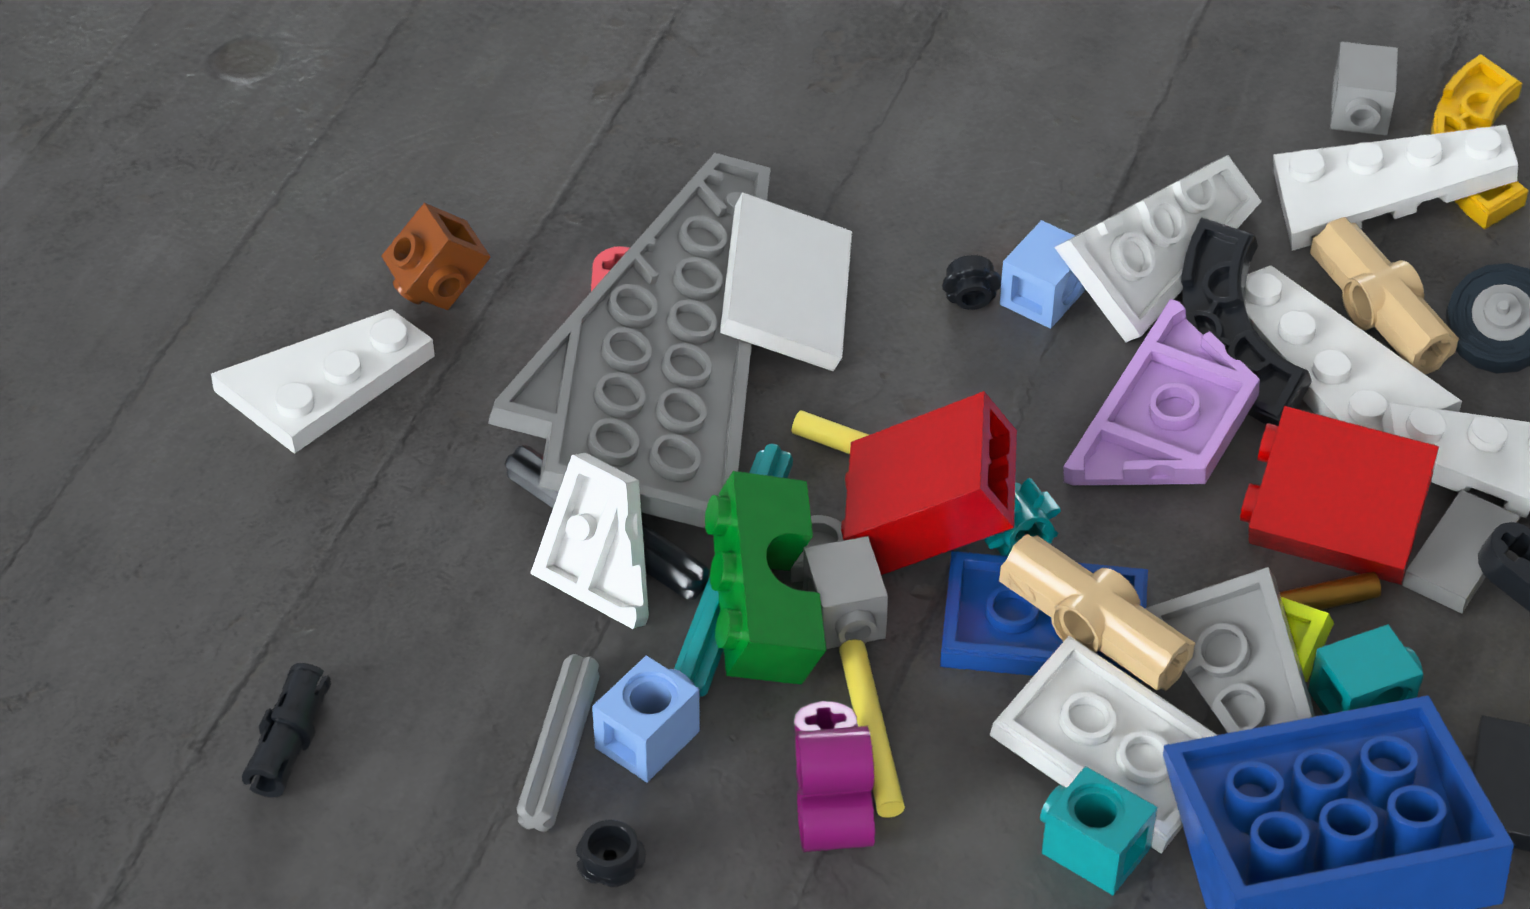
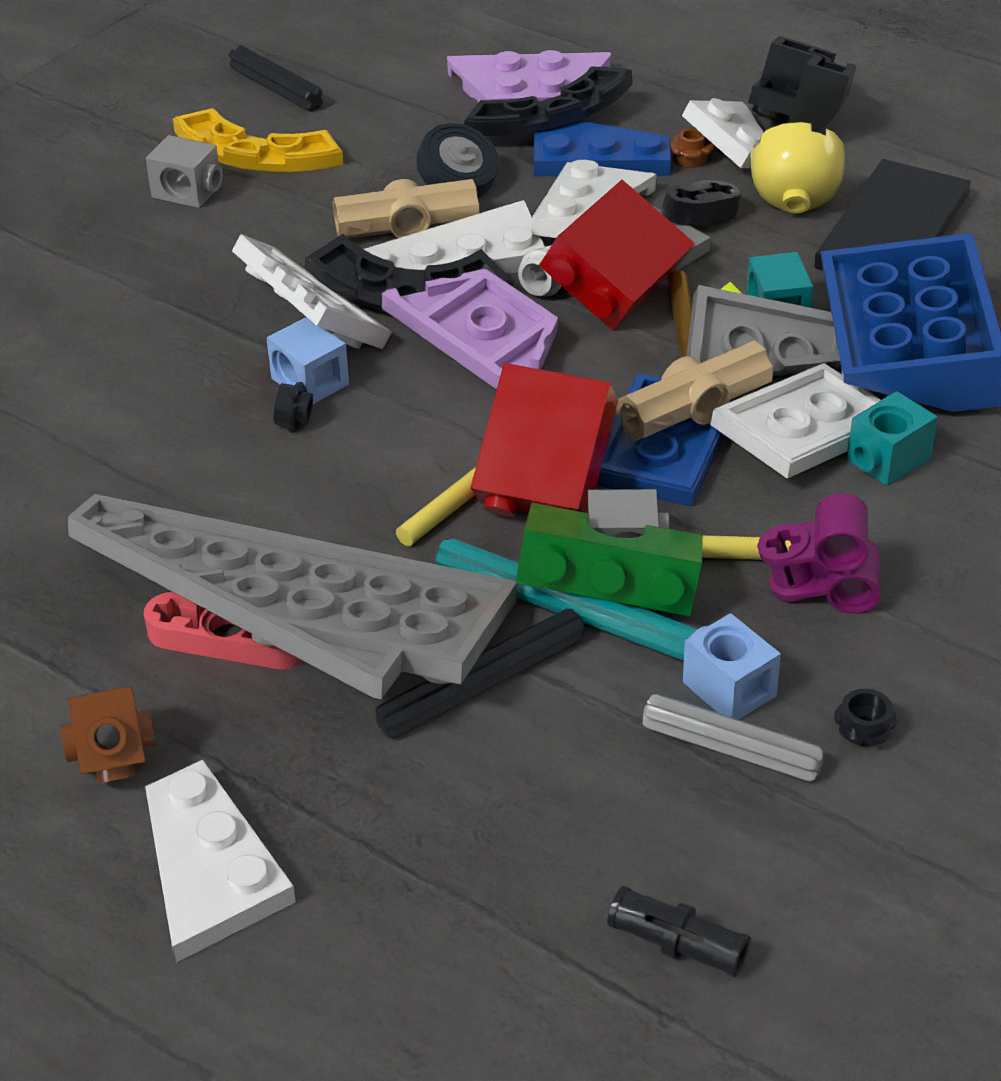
camera: 75 degrees left, 5 degrees down
(597, 541) = (531, 660): white wing -> none
(787, 282) = (246, 505): white tile -> none
(1388, 177) = (284, 186): white wing -> none

